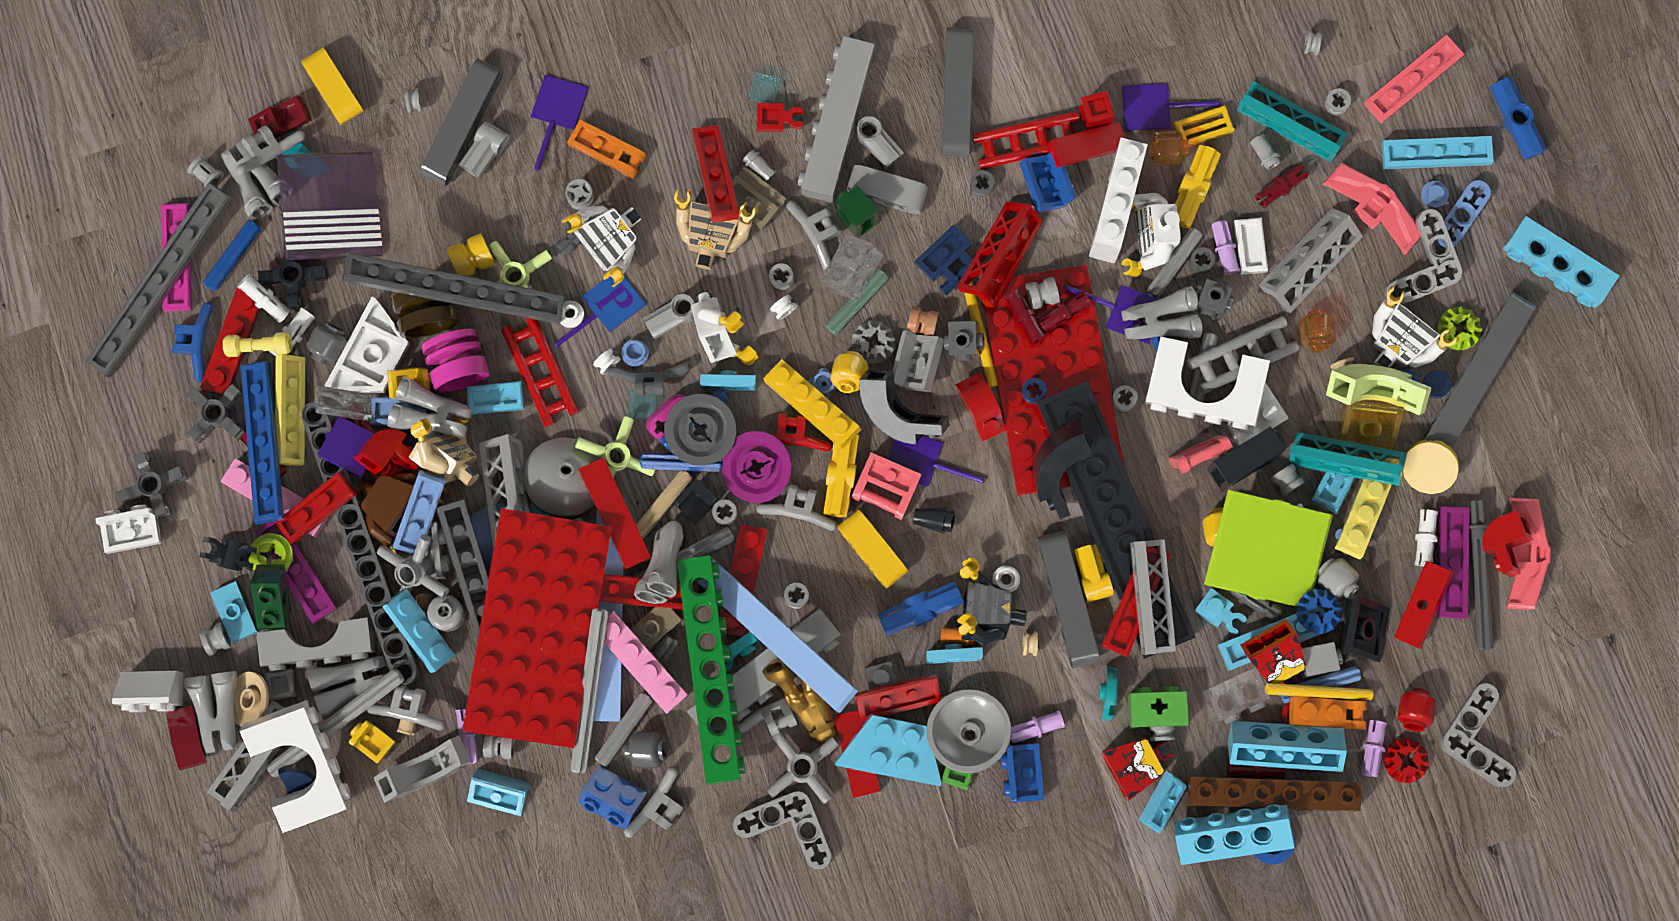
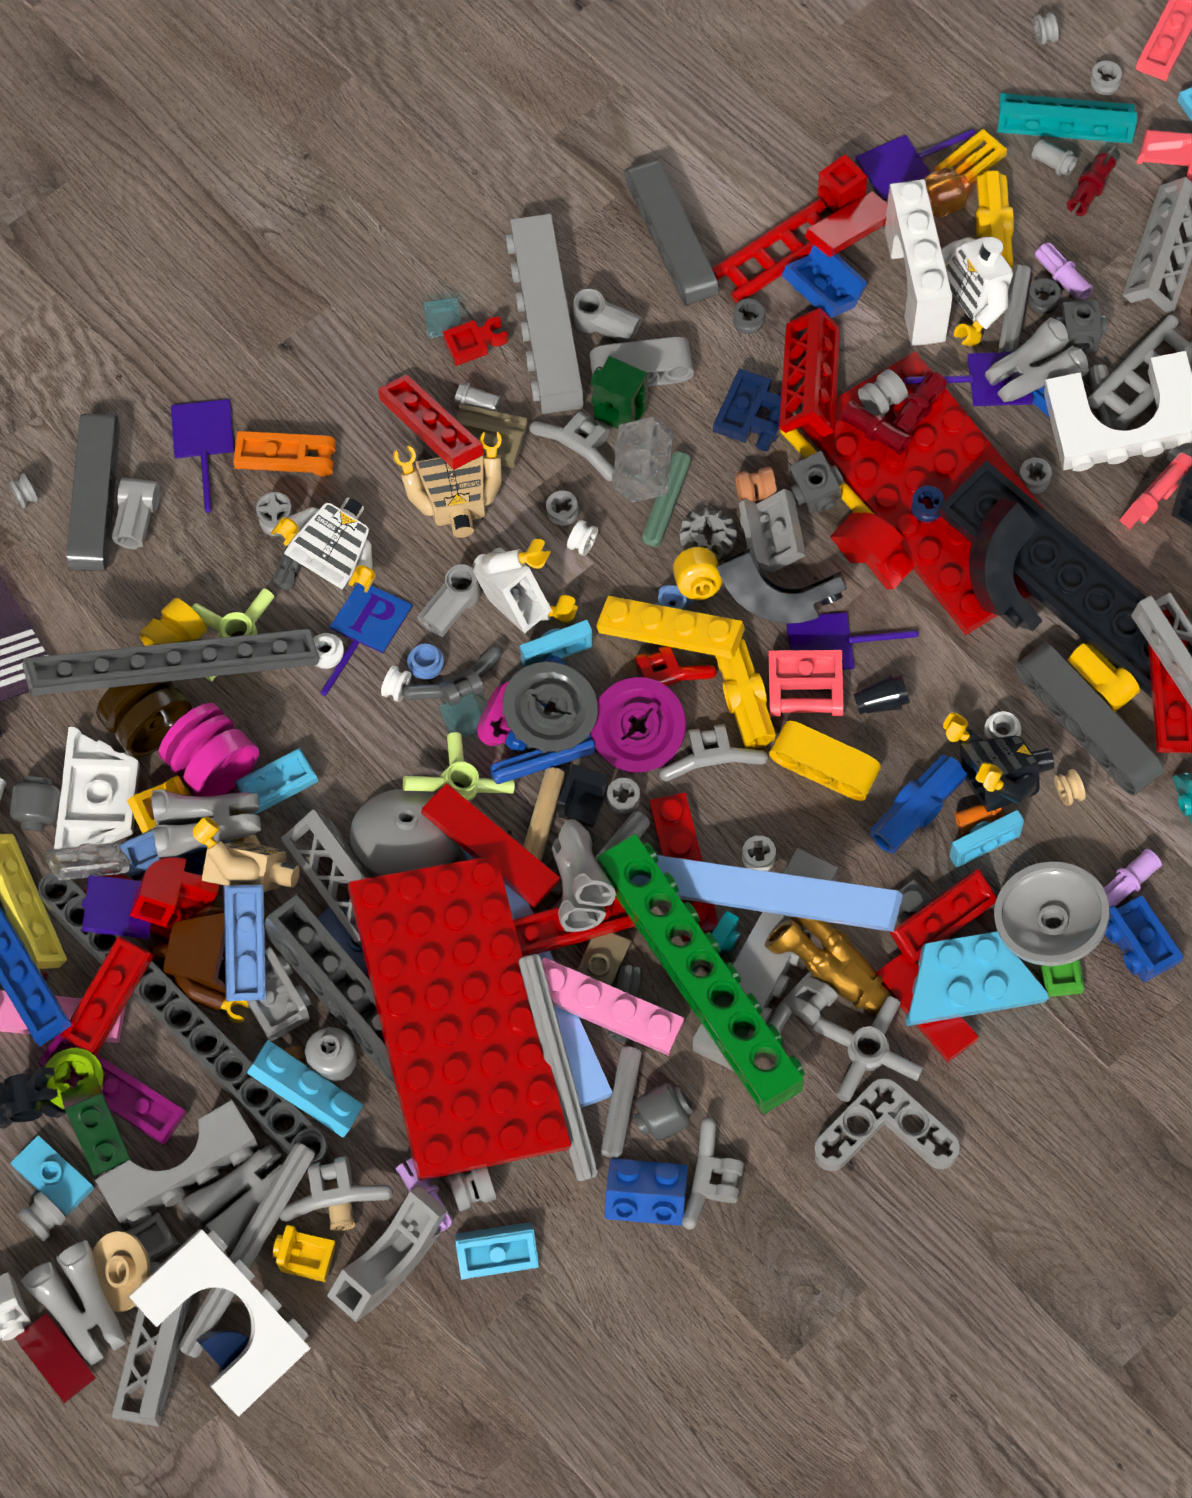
camera: 25 degrees left, 15 degrees down
(414, 569) = (273, 1004): light grey bar -> none
(533, 386) = (321, 751): red bar -> none
(1250, 246) = (1091, 260): white tile -> none

